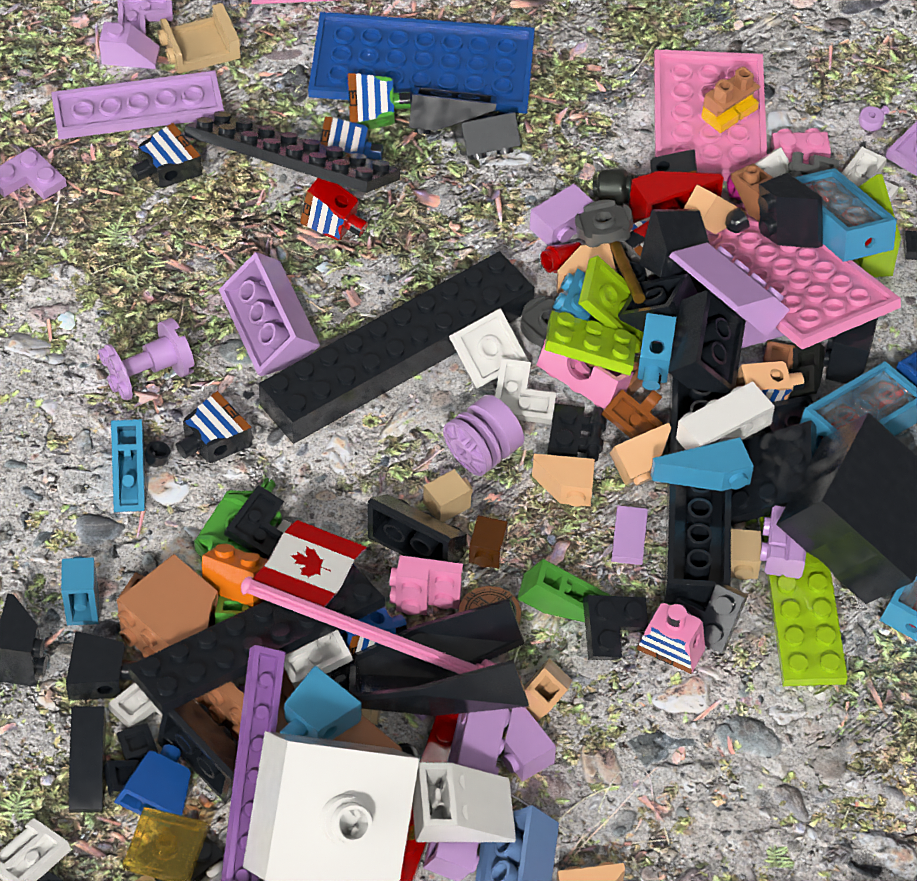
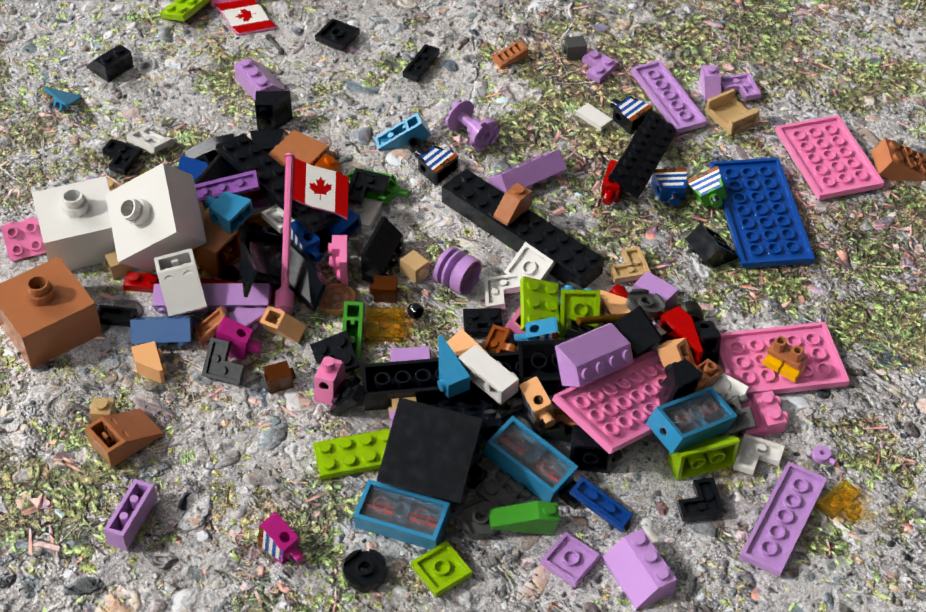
camera: 80 degrees right, 5 degrees down
(80, 591) = (309, 122): dark azure brick -> none
(153, 207) = (594, 117): none -> white tile
(379, 328) = (513, 204): none -> nougat slope
(442, 108) = (715, 216): black slope -> none
(504, 226) = (633, 268): none -> tan plate
(528, 782) = (208, 327): none -> nougat tile
(538, 512) = (415, 310): none -> black hinge
(560, 547) = (384, 324): none -> clear yellow plate
(565, 478) = (441, 319): light nougat slope -> none
(572, 744) = (239, 336): none -> dark pink torso
(613, 787) = (218, 367): none -> black plate
(650, 708) = (279, 376): none -> reddish brown brick

